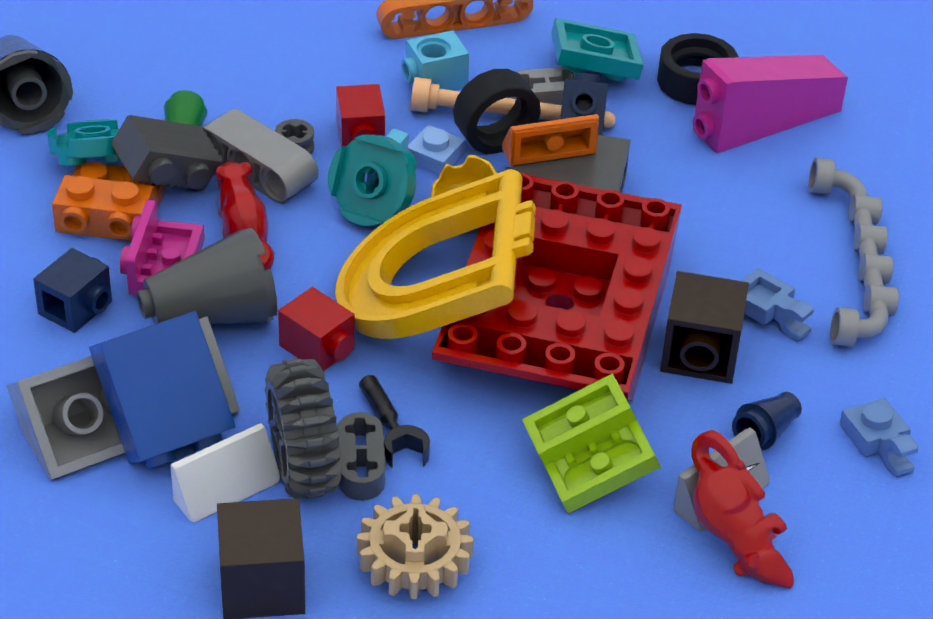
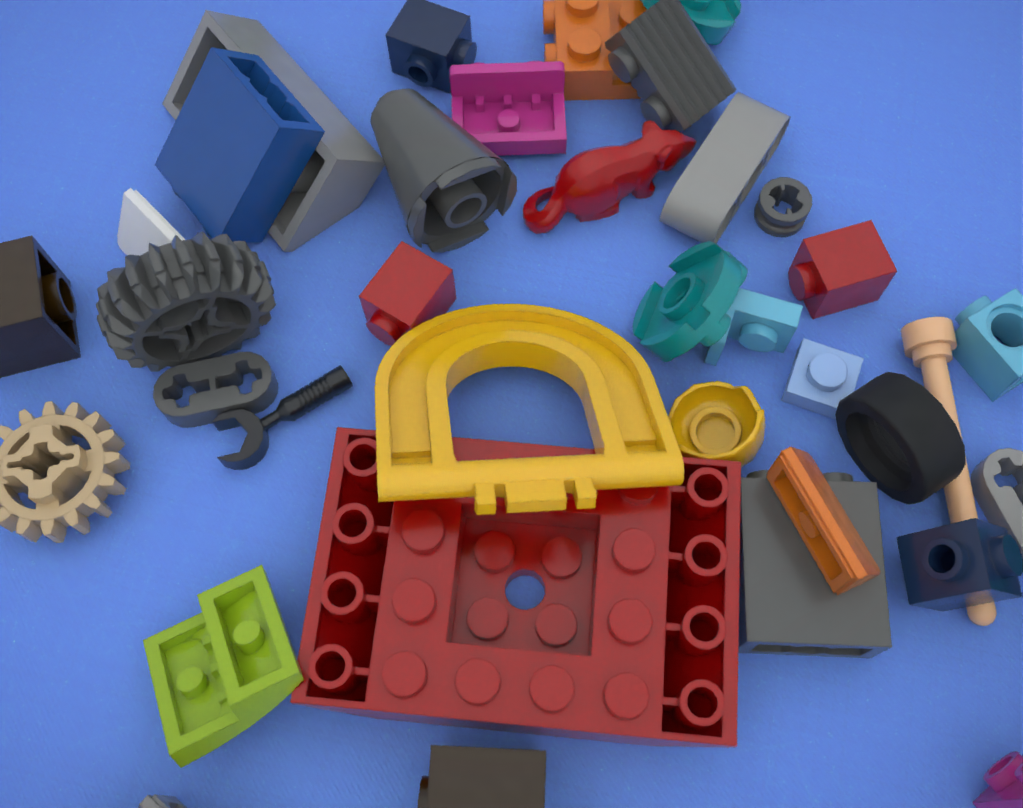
camera: 85 degrees right, 25 degrees up
(185, 108) = (770, 78): green cone -> none

